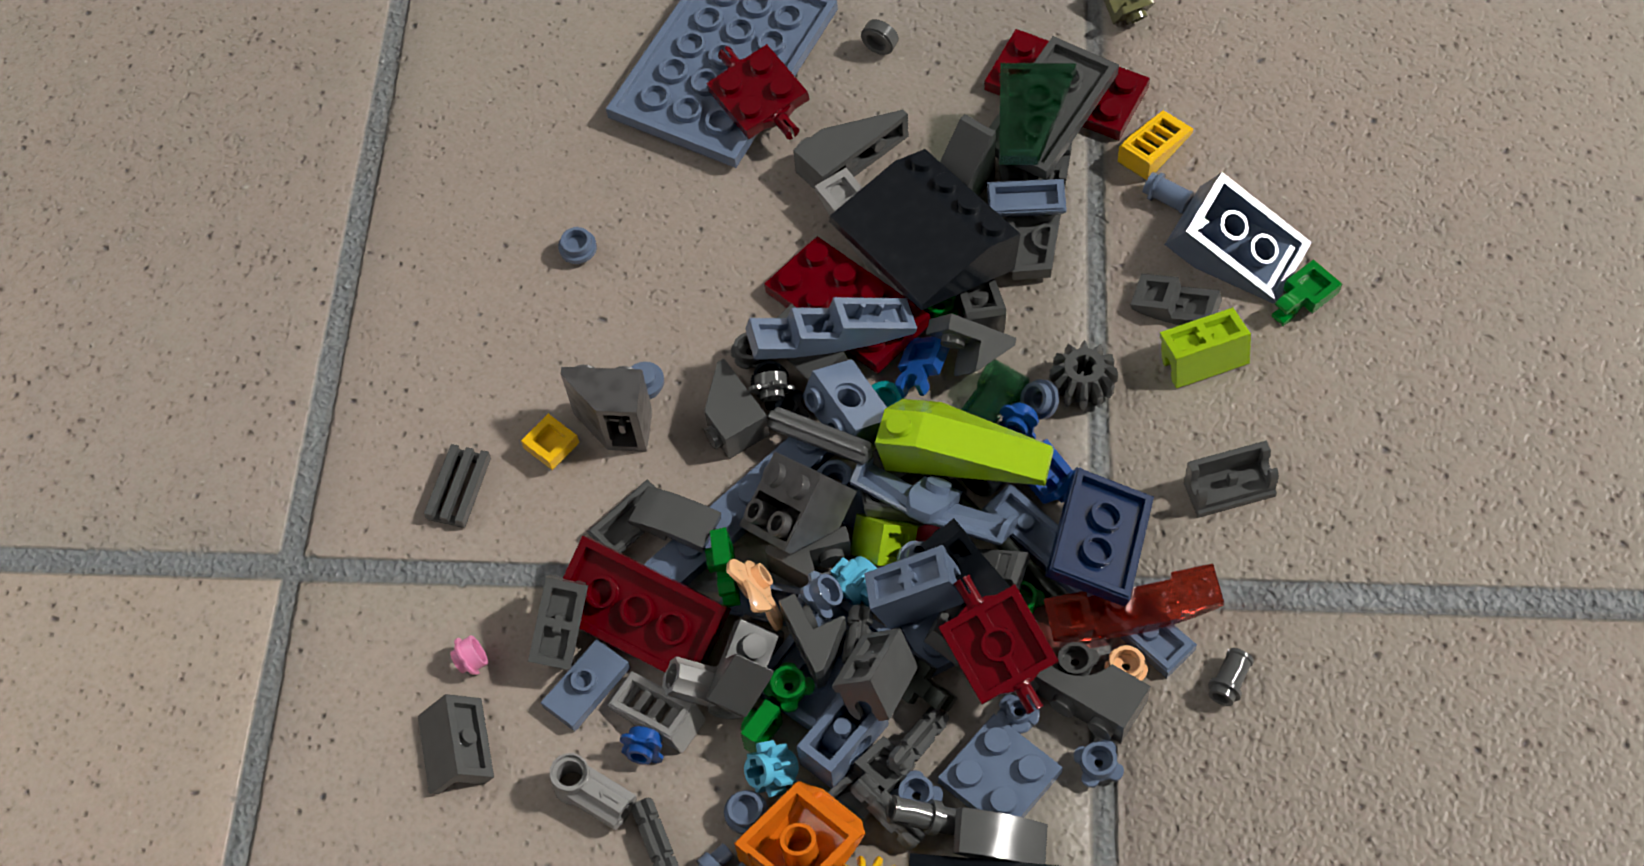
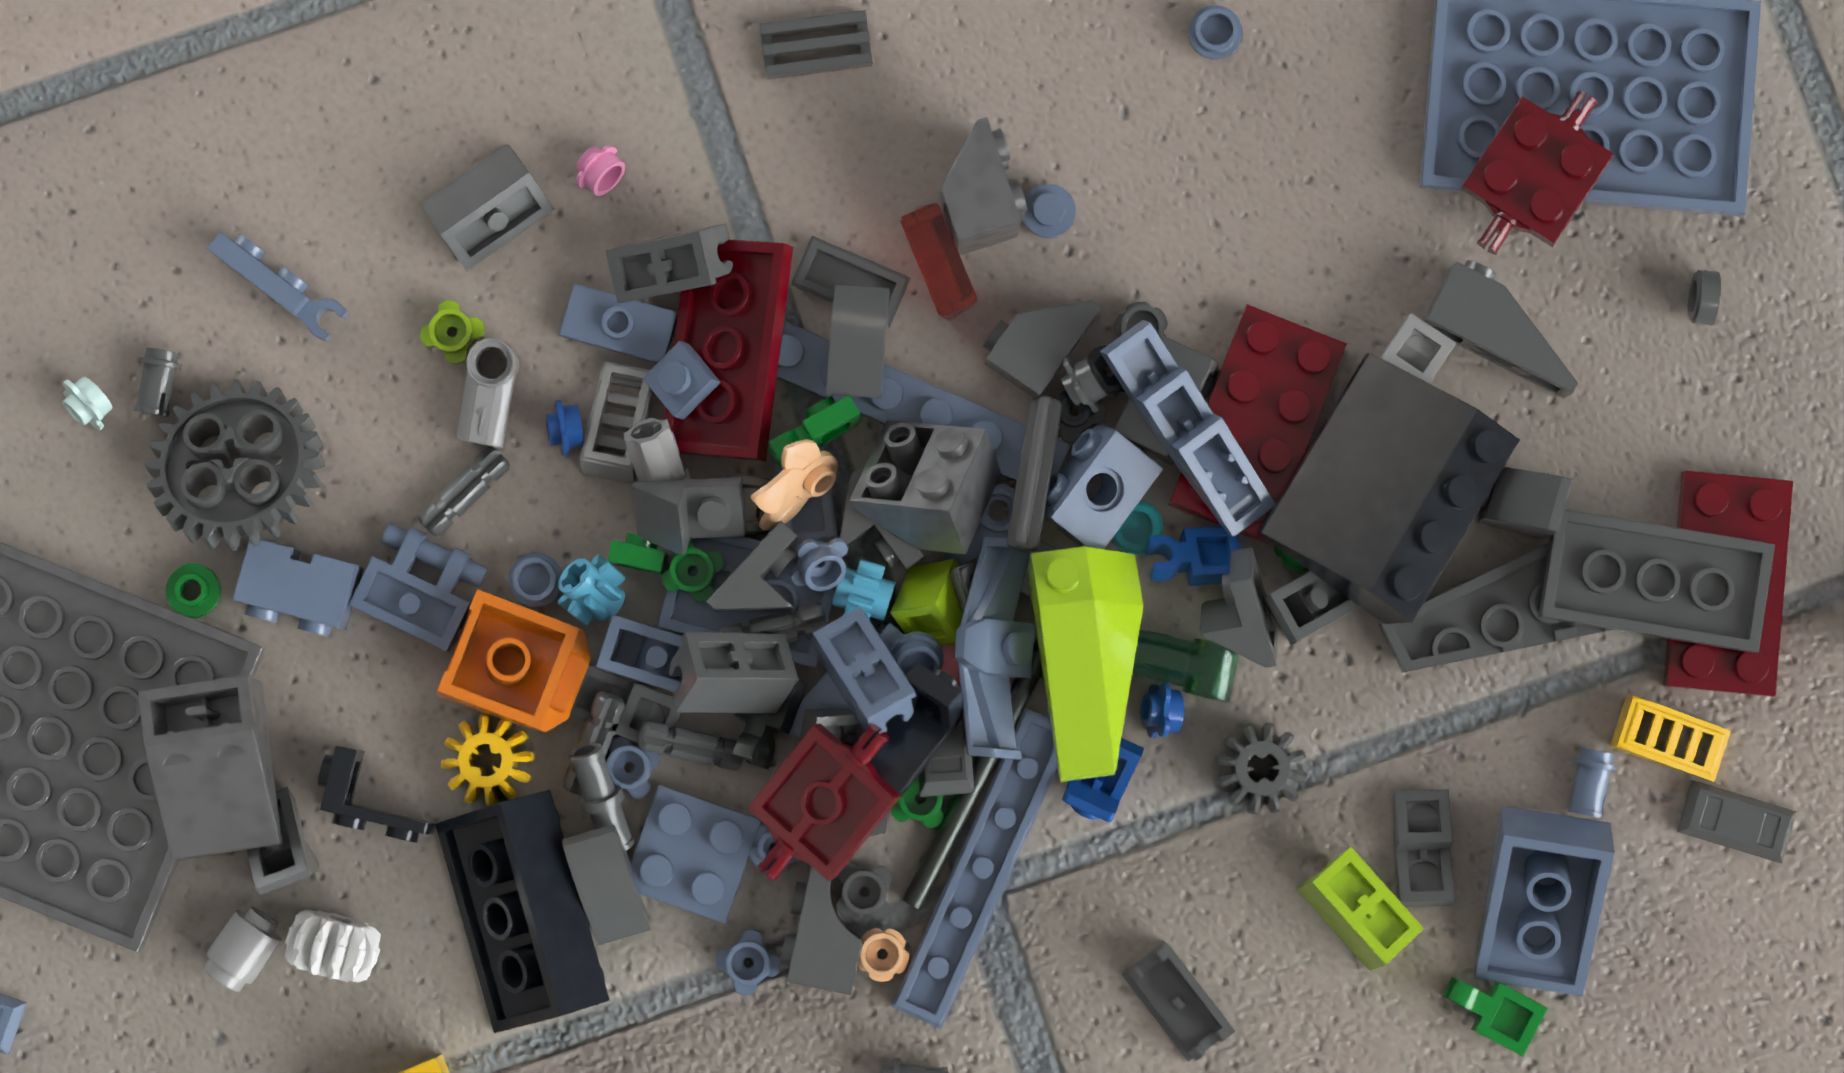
camera: 60 degrees right, 25 degrees up
(531, 792) = (453, 347): none -> lime plate
(550, 441) = (915, 133): yellow plate -> none
(645, 452) = (939, 261): none -> clear red slope
(646, 646) = (681, 380): none -> sand blue plate
(1027, 197) = (1497, 601): sand blue tile -> none
(1029, 108) = (1628, 558): clear green wing -> none
(1033, 394) = (1206, 724): sand blue plate -> none
(1100, 537) = (1024, 870): dark blue tile -> none
(1151, 607) = (950, 940): clear red slope -> none
(1224, 126) = (1736, 821): none -> dark grey tile

